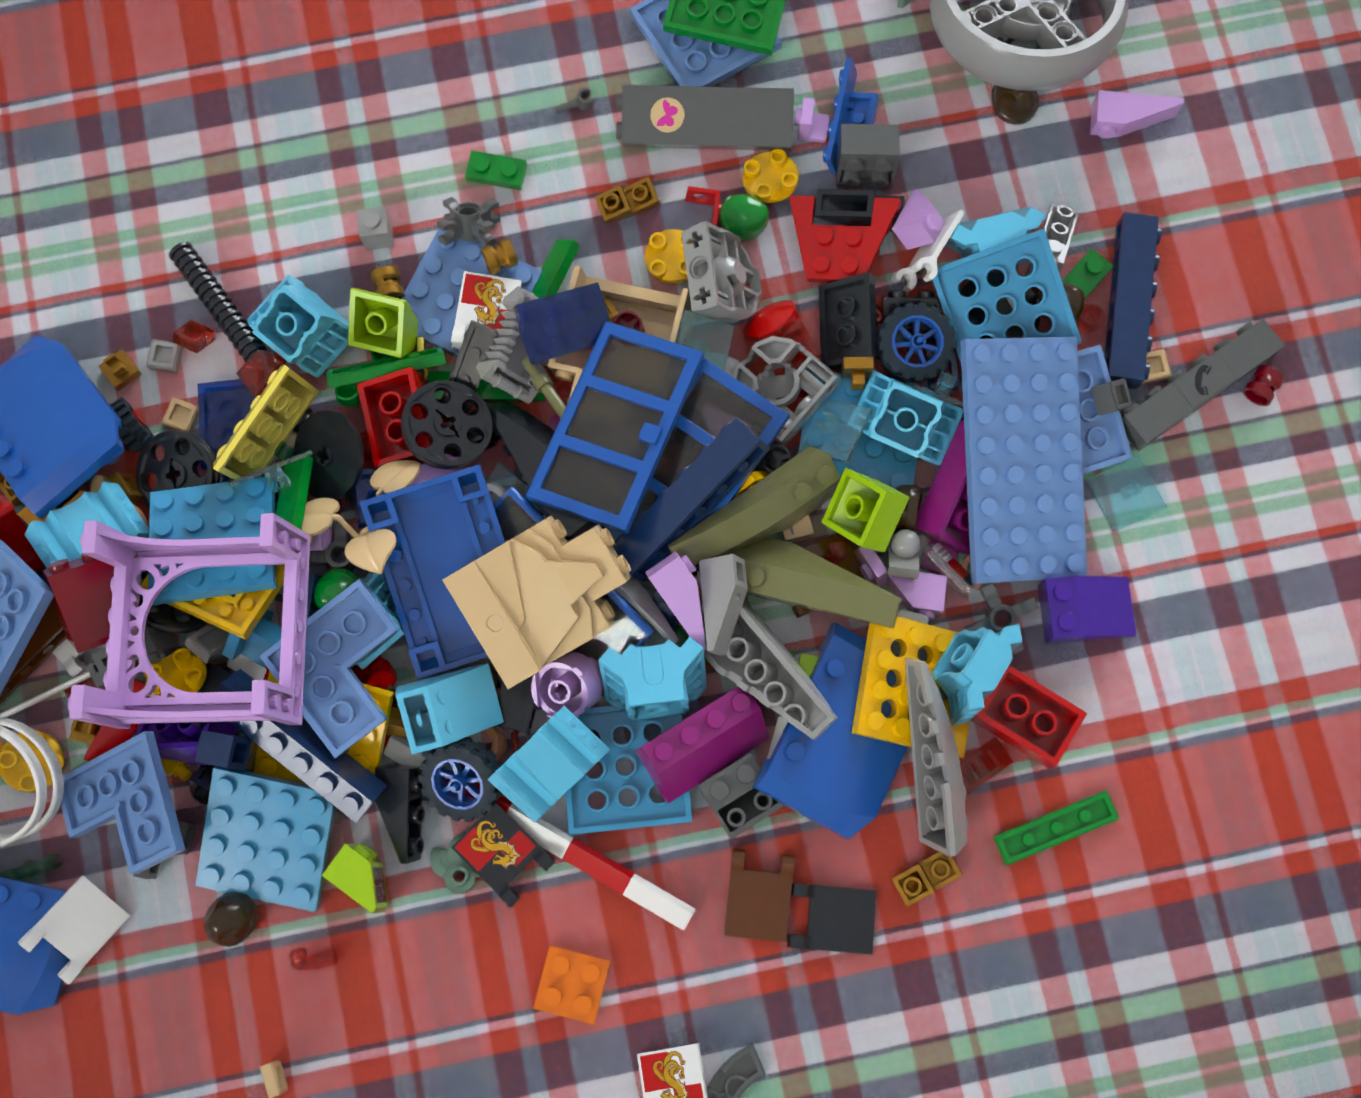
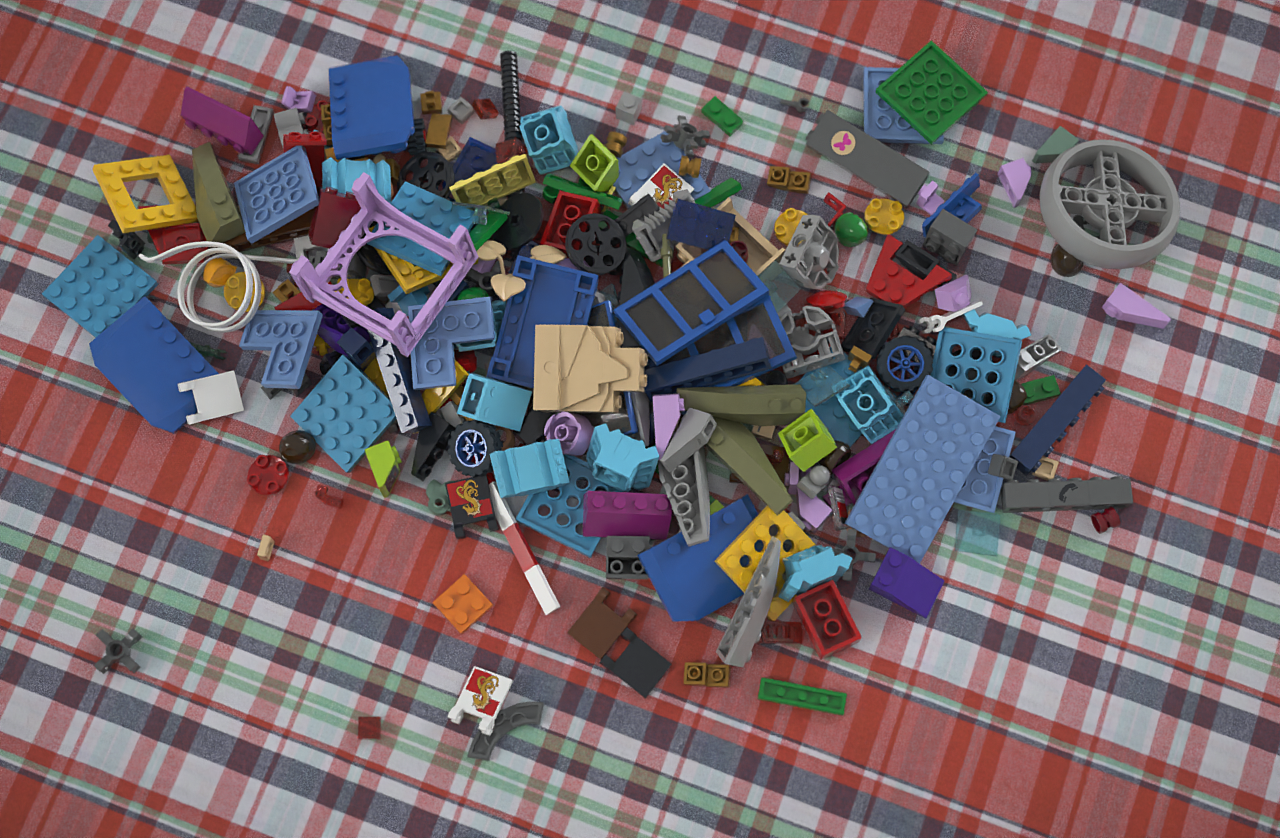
camera: 30 degrees right, 5 degrees down
(152, 400) = (438, 130): none -> pearl gold slope
(215, 980) = (268, 474): none -> red dish
(812, 305) = (858, 306): none -> medium blue slope
(896, 40) = (1015, 179): none -> lavender slope

